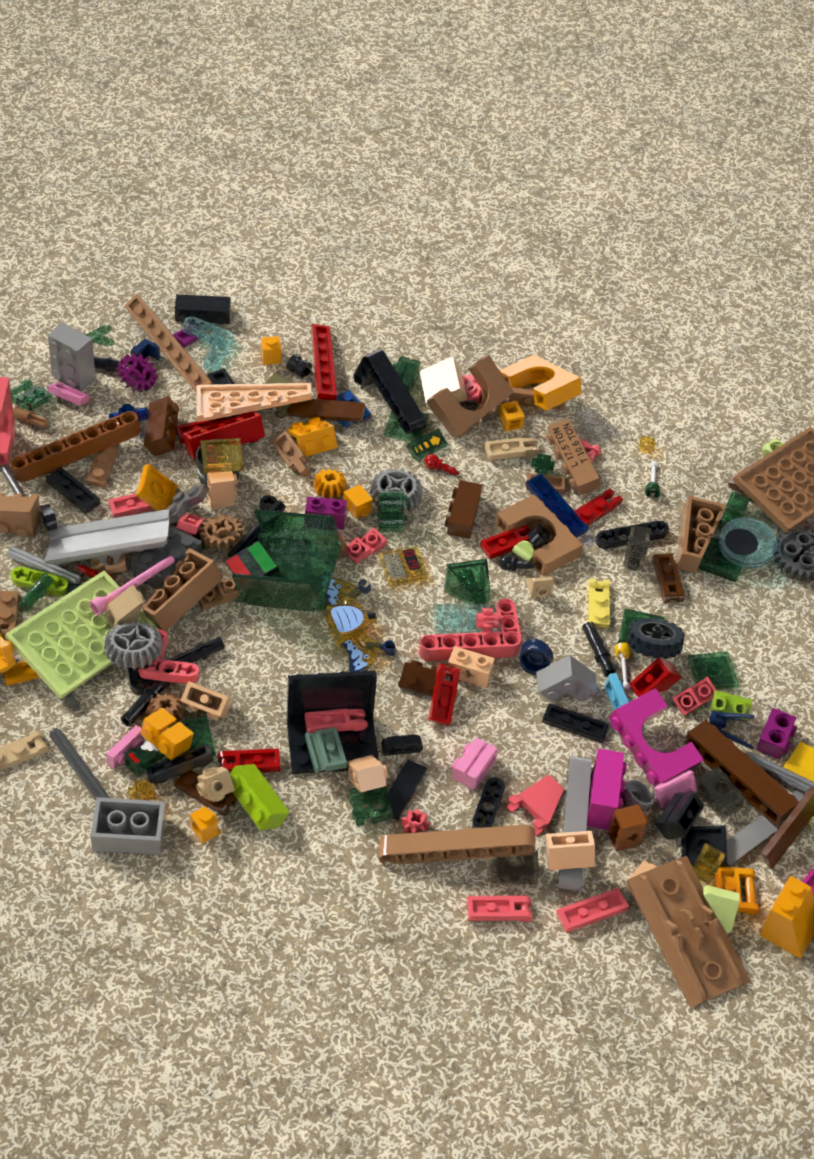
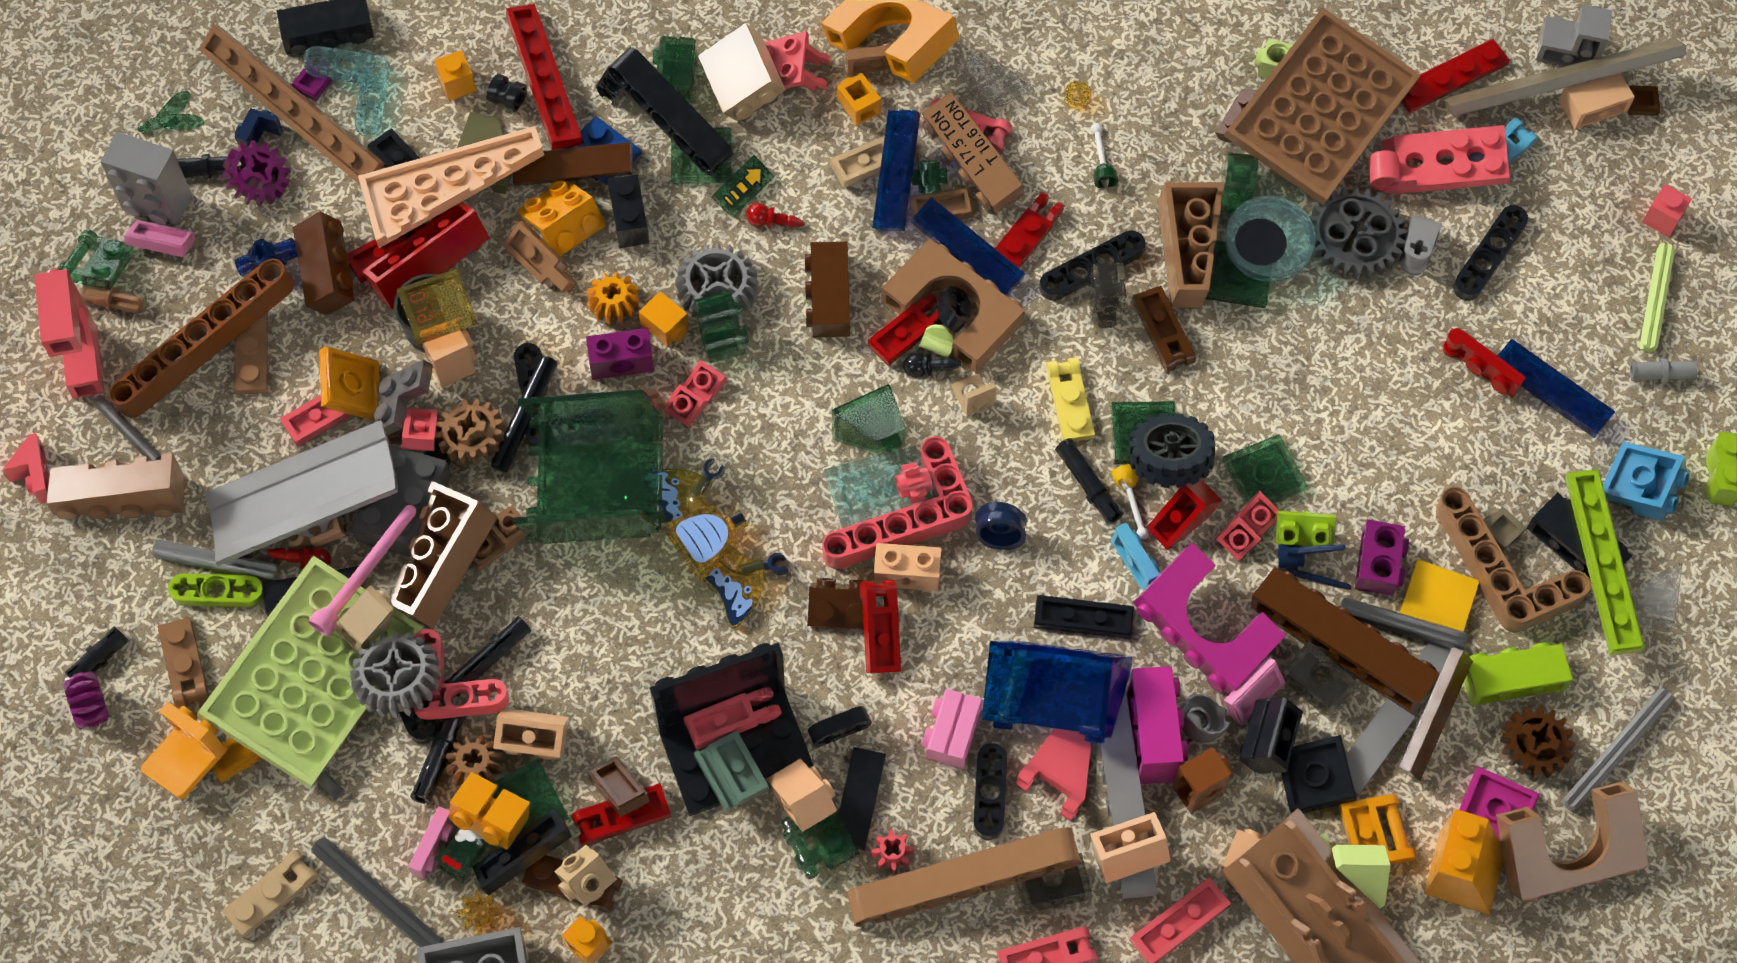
camera: 10 degrees left, 15 degrees up
(36, 592) = (218, 614): clear green pin -> none
(48, 517) = (196, 476): black beam -> none
(73, 490) = (219, 414): black plate -> none
(252, 561) = (534, 480): tile -> none
(252, 743) = (618, 786): none -> reddish brown tile
(258, 797) = (651, 875): lime brick -> none
(353, 441) = (628, 211): none -> black brick
(403, 566) = (761, 414): clear yellow tile -> none
(494, 392) = (825, 71): medium nougat arch -> none
(523, 455) = (896, 170): none -> clear blue plate
(545, 751) = (1055, 687): none -> clear blue windscreen
(567, 677) = (1056, 551): light grey brick -> none
(708, 863) = (1330, 810): clear yellow brick -> none

